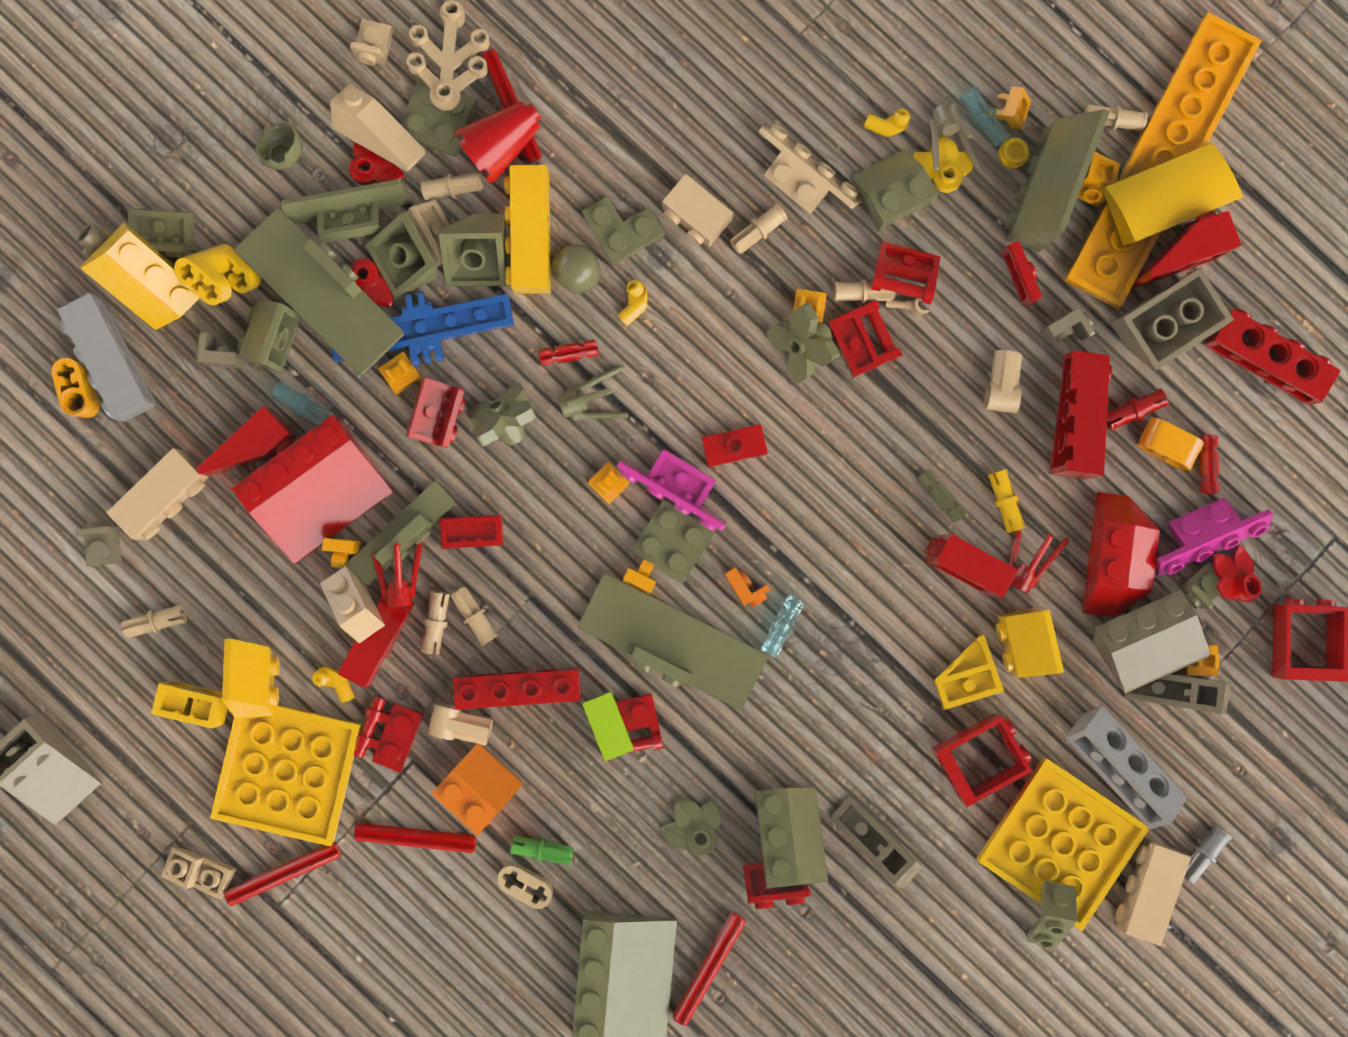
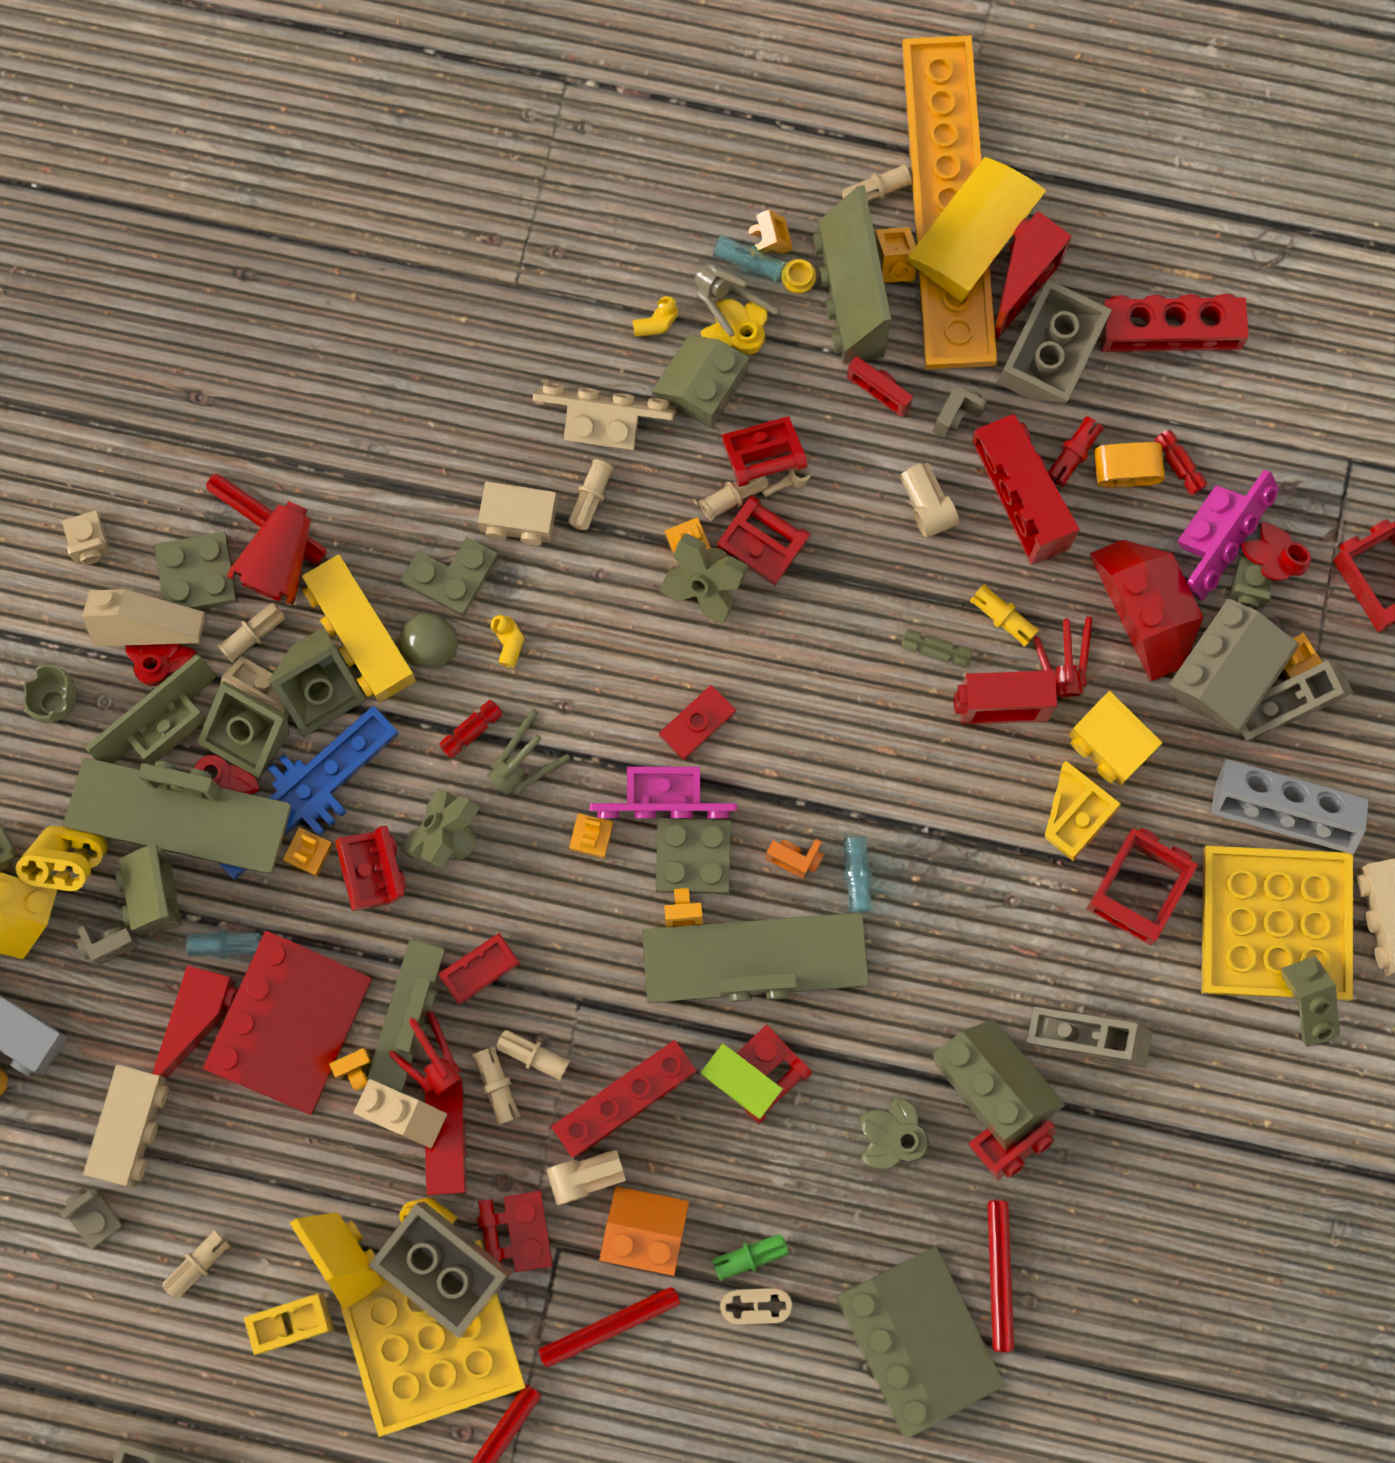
camera: 30 degrees left, 10 degrees down
(315, 733) = (440, 1268): none -> dark tan slope
(448, 59) = (176, 509): tan plant -> none

